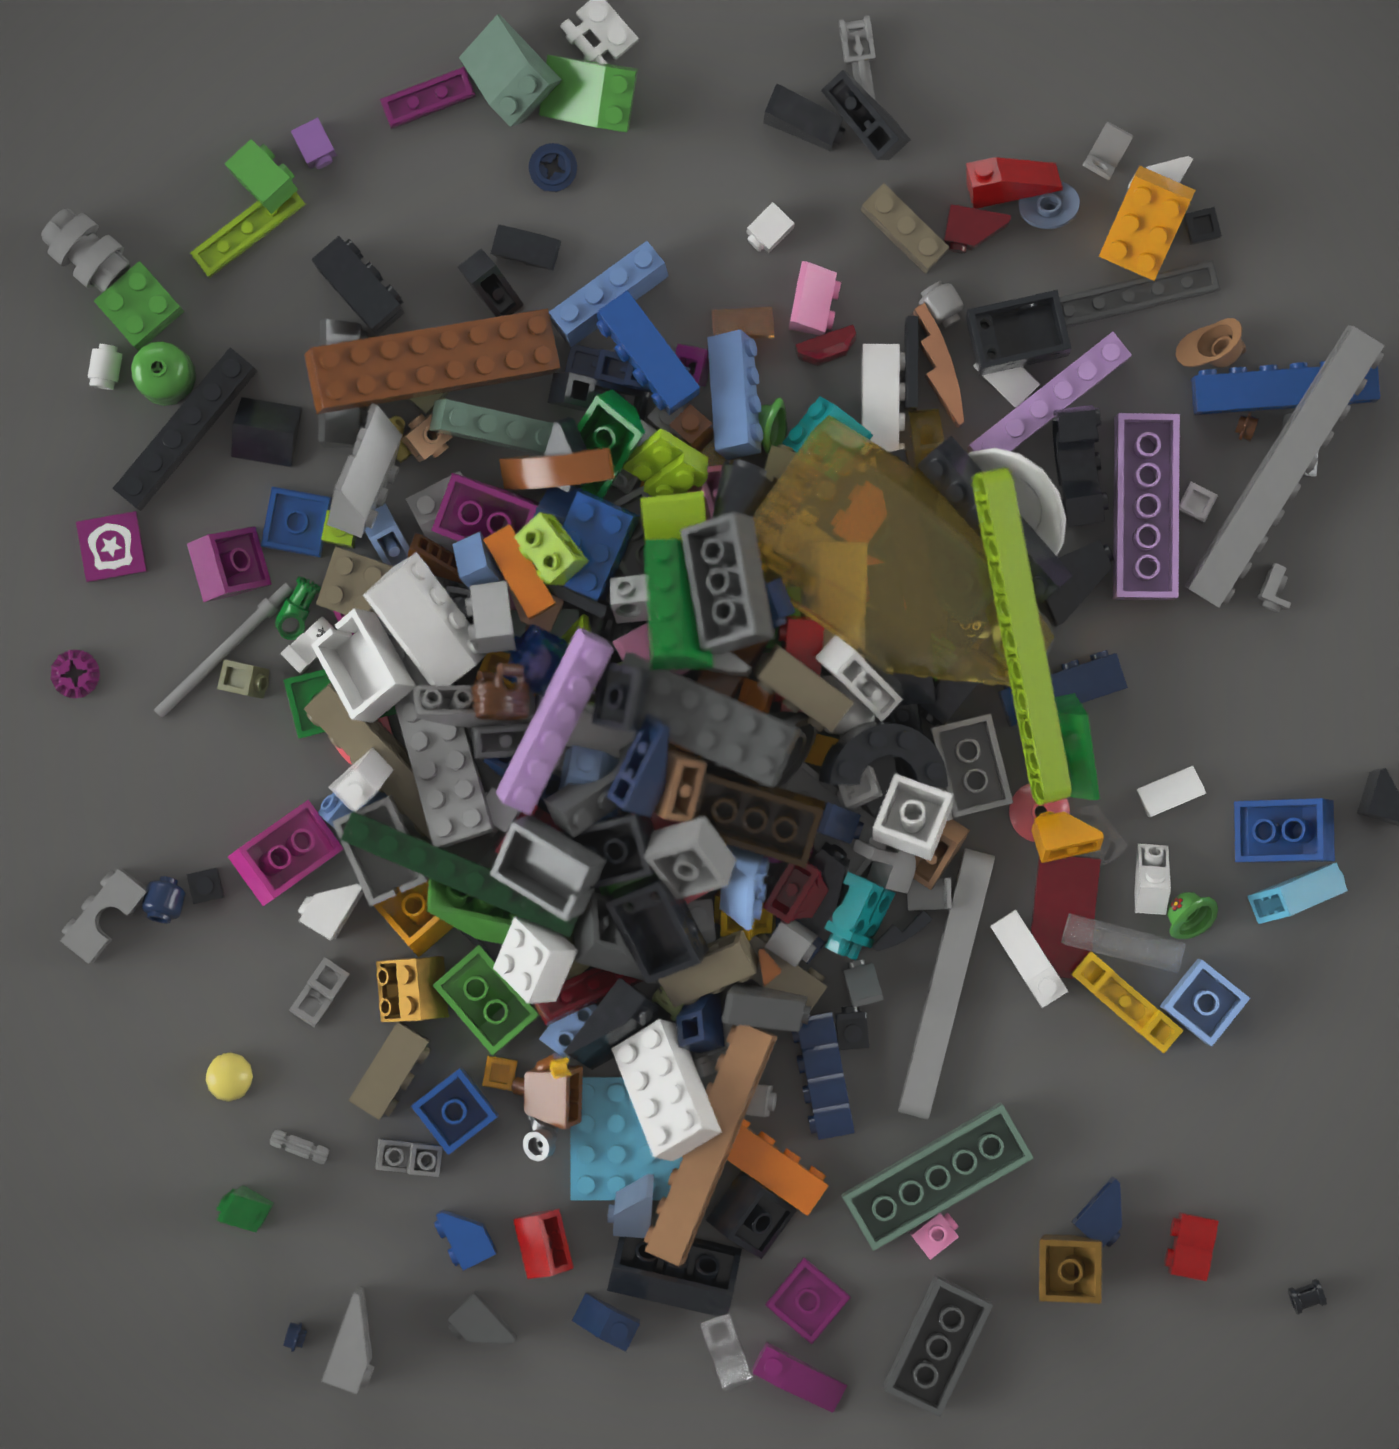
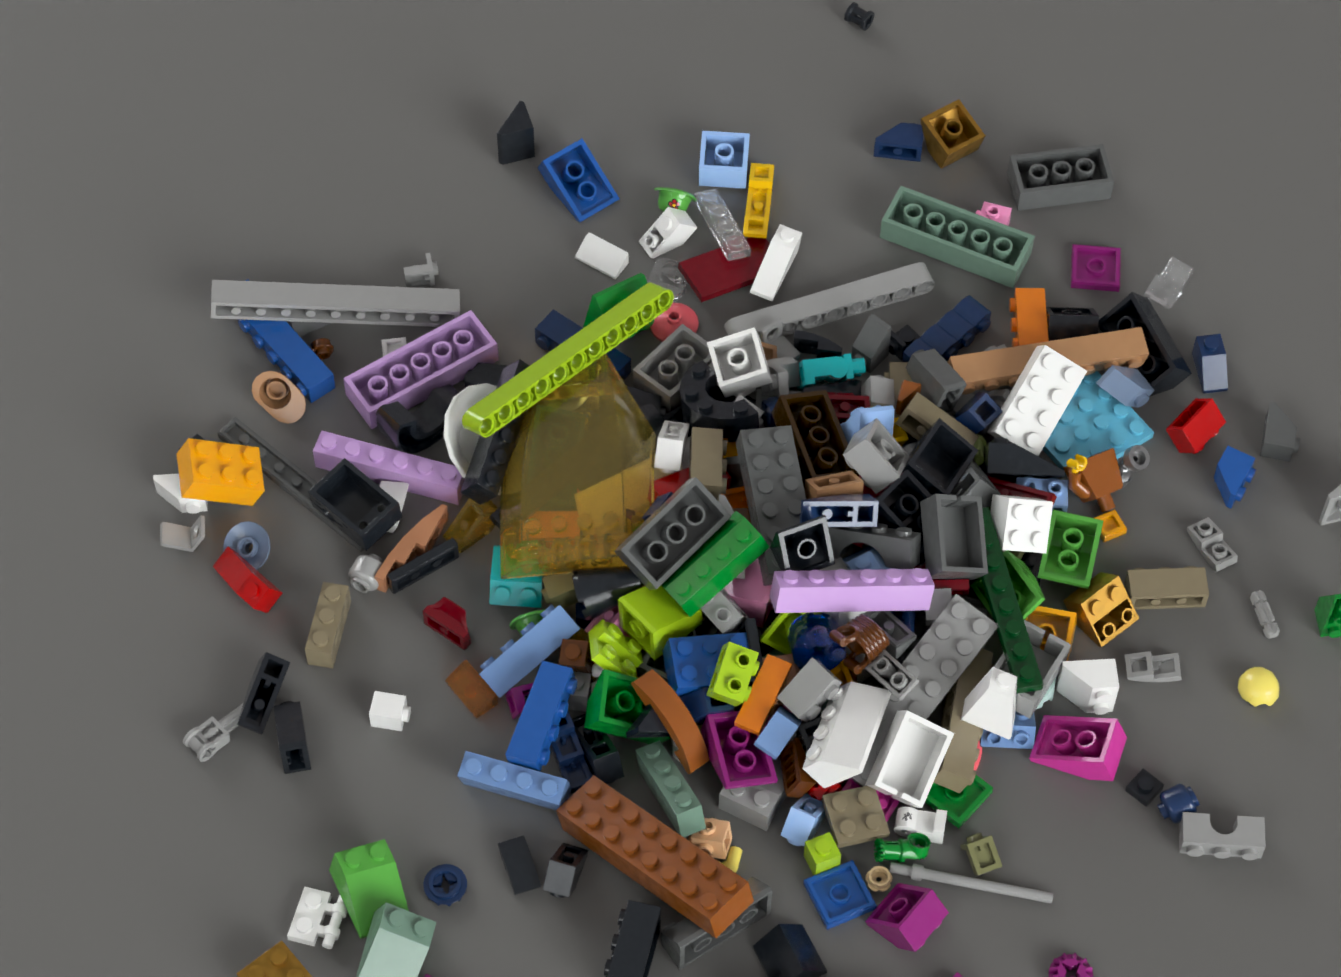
camera: 120 degrees left, 30 degrees down
(282, 559) = (879, 872): none -> tan plate
(366, 475) = (774, 848): light grey wedge -> none
(455, 1110) = (1158, 528): blue brick -> none
(798, 1377) = (1148, 245): magenta slope -> none
(813, 299) = (423, 651): bright pink slope -> none
(882, 394) = (459, 570): white brick -> none
(971, 227) = (297, 585): dark red slope -> none
(1064, 836) = (686, 289): light orange slope -> none
(1192, 1246) = (880, 87): red brick -> none
(1297, 893) = (616, 151): medium azure slope -> none

